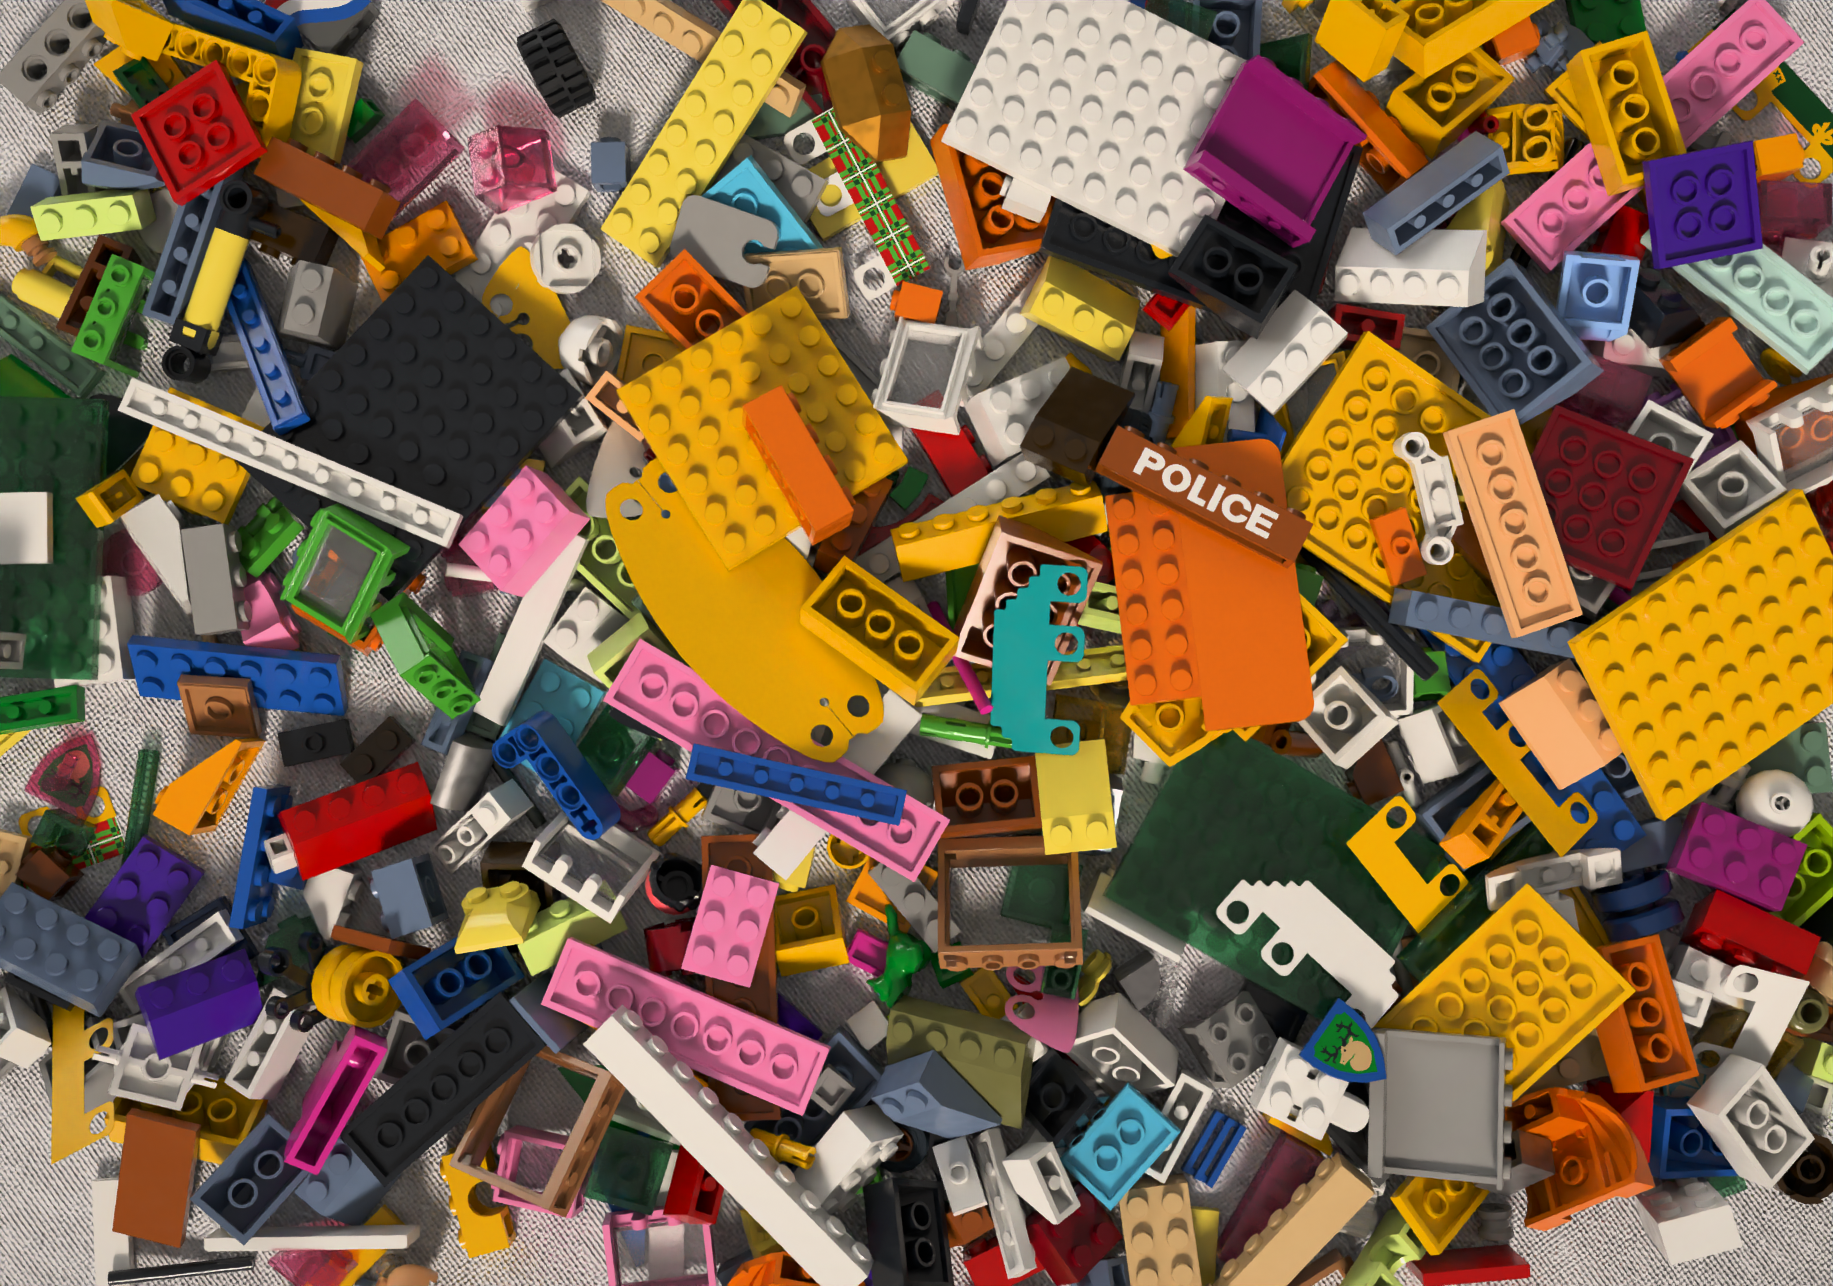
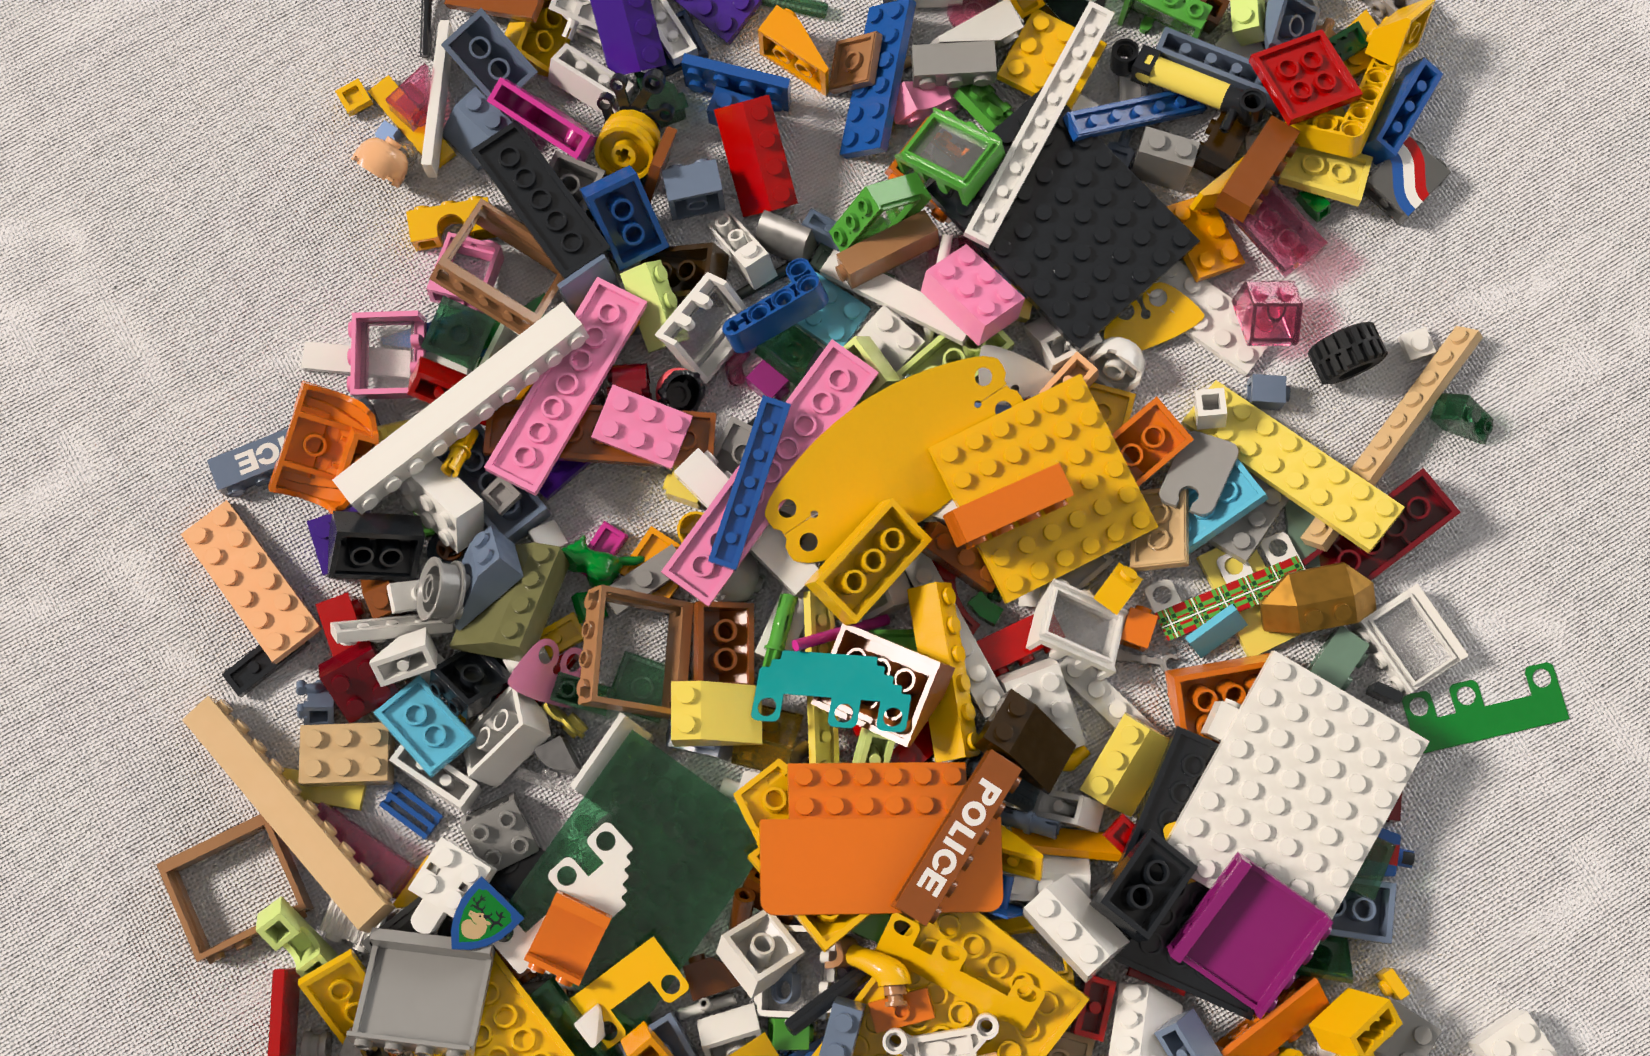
camera: 95 degrees right, 10 degrees down
(280, 853) = (736, 93): white piece -> none
(316, 742) = (820, 132): black plate -> none
(332, 896) = (699, 133): white slope -> none
(378, 751) = (809, 178): dark brown plate -> none
(471, 643) = (887, 249): none -> medium nougat brick
(496, 917) = (669, 250): light yellow slope -> none
(578, 244) = (1180, 338): white plate -> none
(643, 230) = (1210, 408): none -> white brick
(677, 817) = (732, 399): yellow axle -> none
(809, 931) = (630, 494): yellow slope -> none
(875, 330) = (1118, 588): none -> yellow slope
(912, 211) = (1216, 631): none -> medium azure tile
(958, 1147) = (442, 590): none -> light grey wheel
(1356, 944) = (567, 939): none -> orange panel
(1357, 492) = (948, 975): none -> yellow piece
(1357, 570) = (883, 968): none -> yellow piece
(1449, 904) = (591, 1026): none -> white slope

